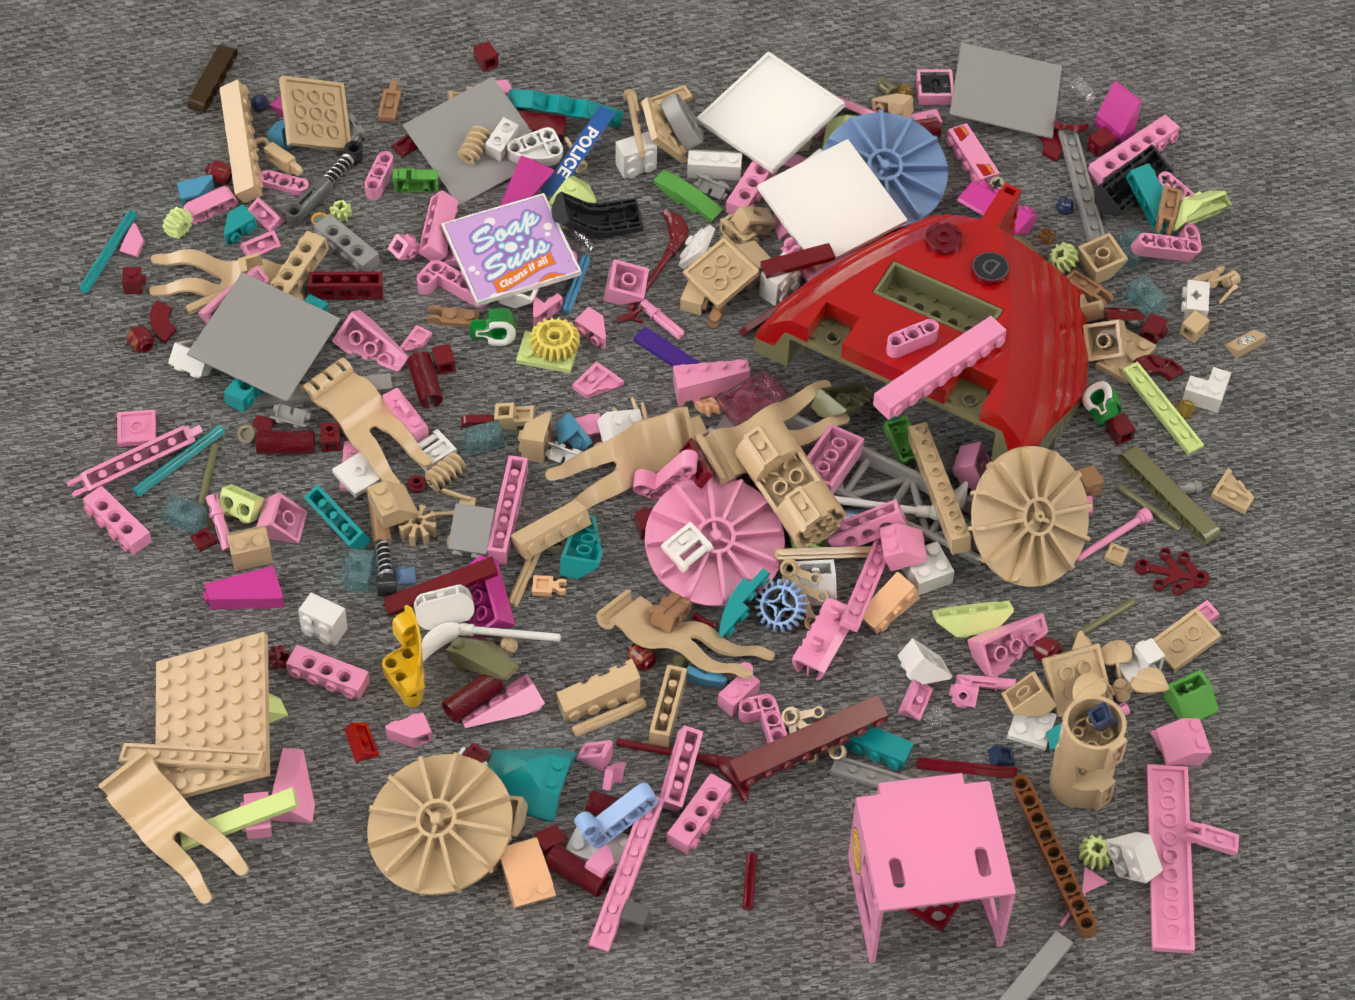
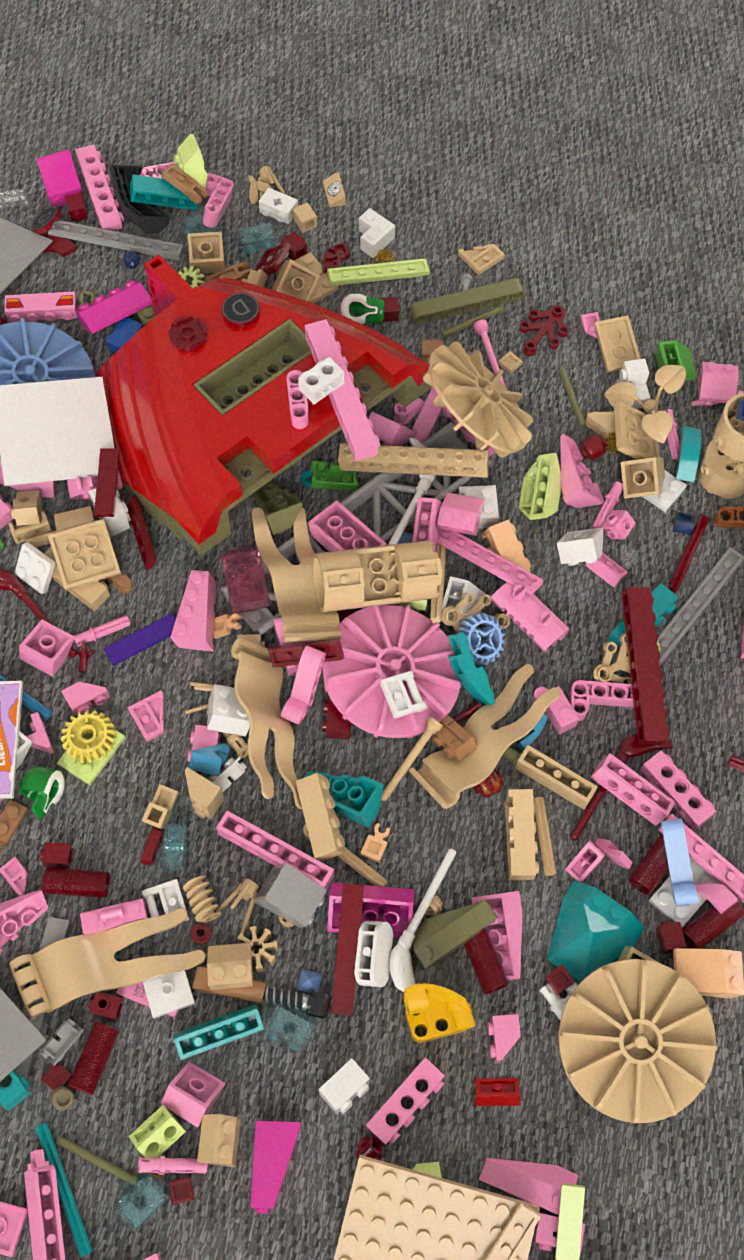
camera: 70 degrees left, 10 degrees up
(672, 588) = (431, 728): none -> tan piece
(931, 342) = (326, 377): none -> white brick

